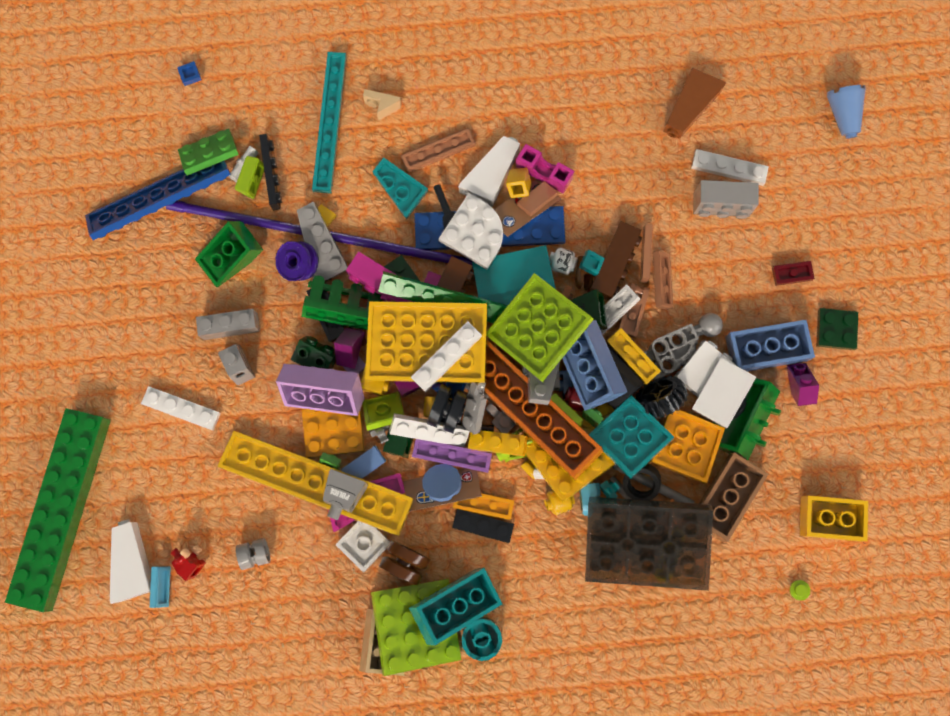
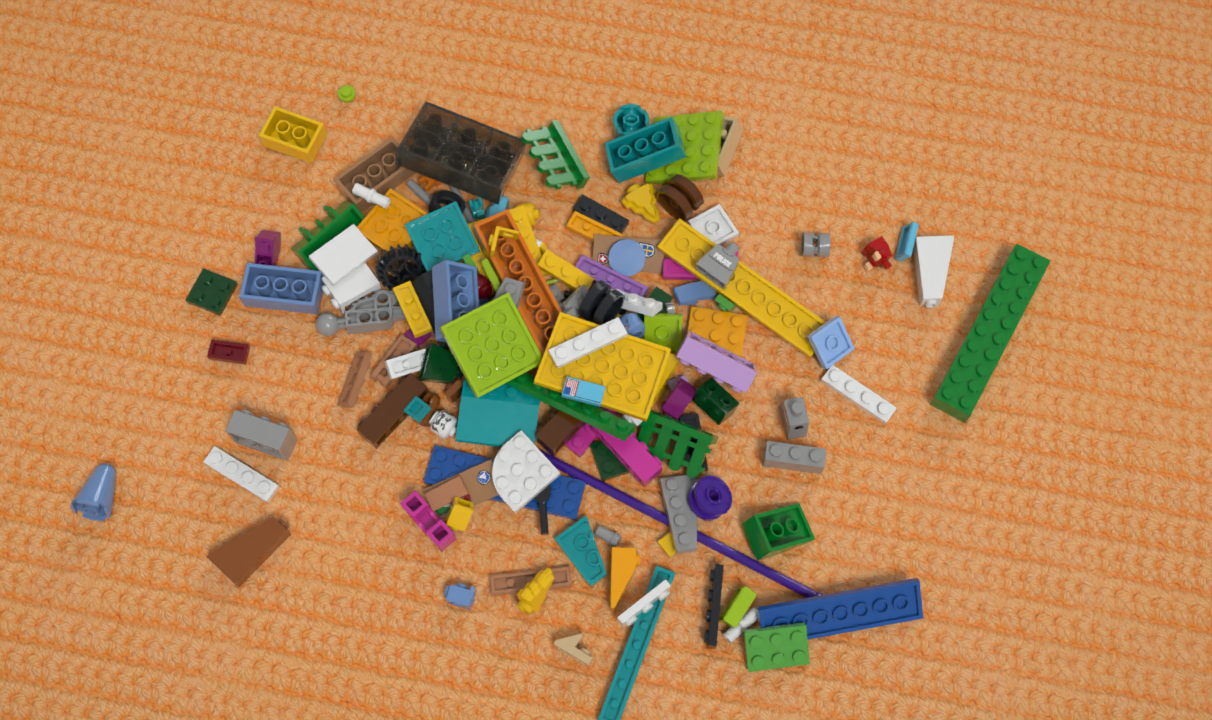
camera: 165 degrees left, 10 degrees down
(215, 448) = (831, 342): none -> light blue plate
(330, 150) = (644, 604): none -> white plate
(358, 178) = (622, 571): none -> light orange slope
(381, 206) = (608, 536): none -> light grey pin
(414, 402) = (633, 324): none -> medium blue head
(429, 136) = (535, 592): none -> yellow rock
(435, 305) = (583, 391): none -> medium azure tile
(444, 552) = (642, 201): none -> yellow rock
(491, 172) = (483, 537): white slope -> none
(494, 117) = (460, 595): none -> medium blue brick
(542, 583) = (565, 155): none -> fence
(574, 433) = (500, 231): none -> yellow bracket
(646, 253) = (360, 409): nougat tile -> none
(721, 464) = (371, 195): none -> white pin

